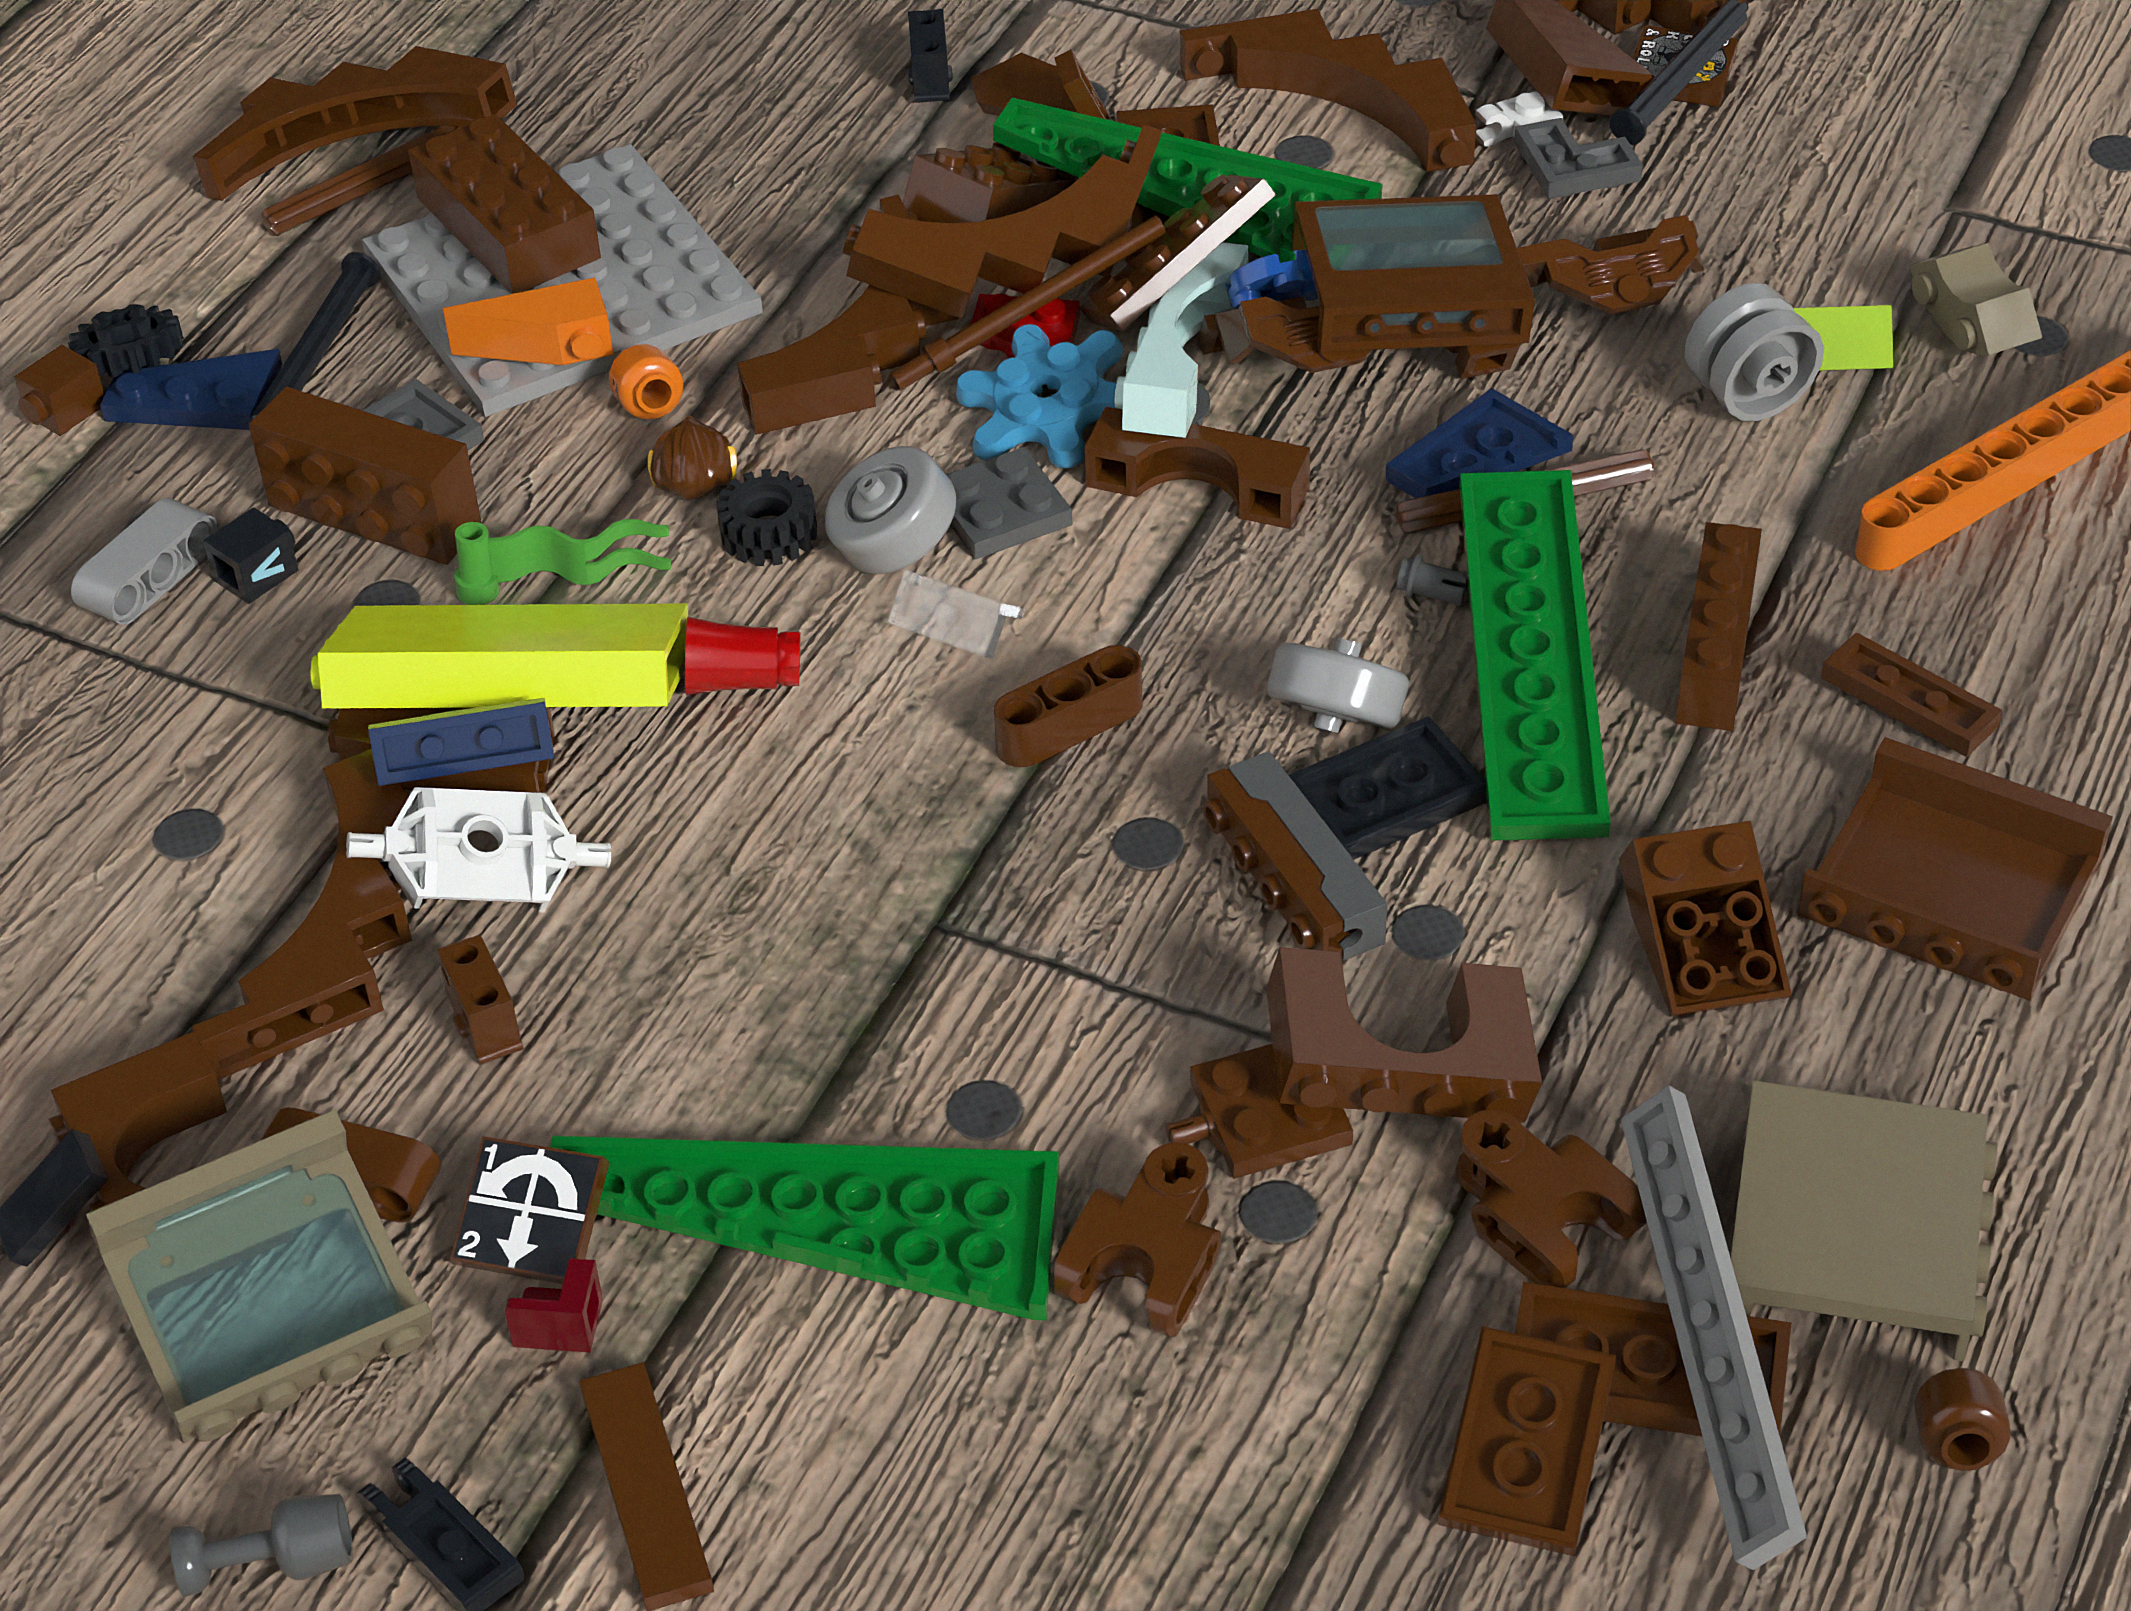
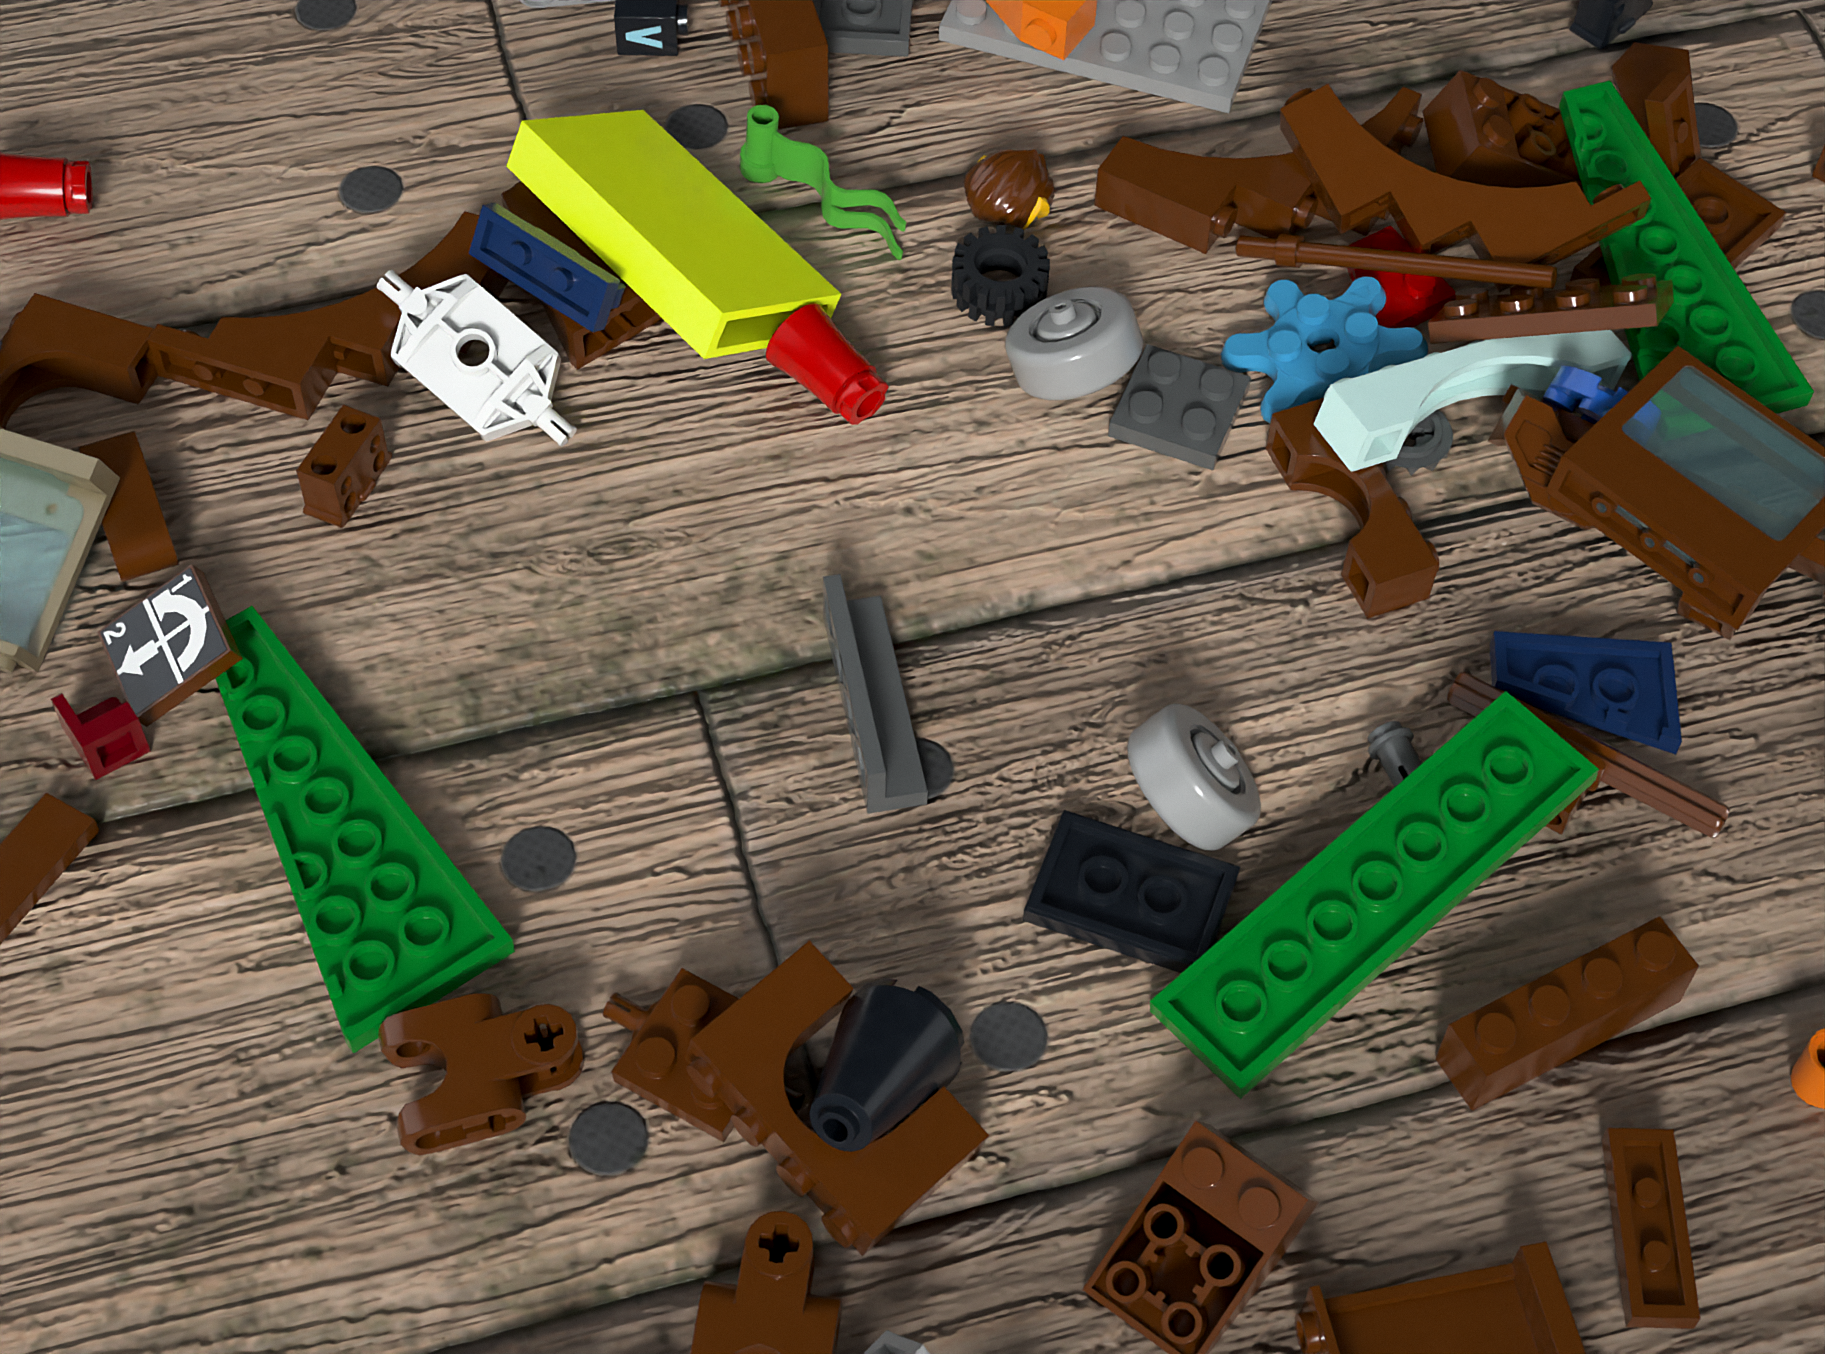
camera: 45 degrees right, 10 degrees up
(646, 381) = (1059, 100): orange head -> none
(951, 613) = (1024, 461): clear panel -> none
(1063, 824) = (873, 700): none -> dark grey fence
(1068, 706) = (1020, 604): reddish brown beam -> none
(1294, 858) = (975, 883): piece -> none
(1408, 980) = (884, 1062): none -> black cone

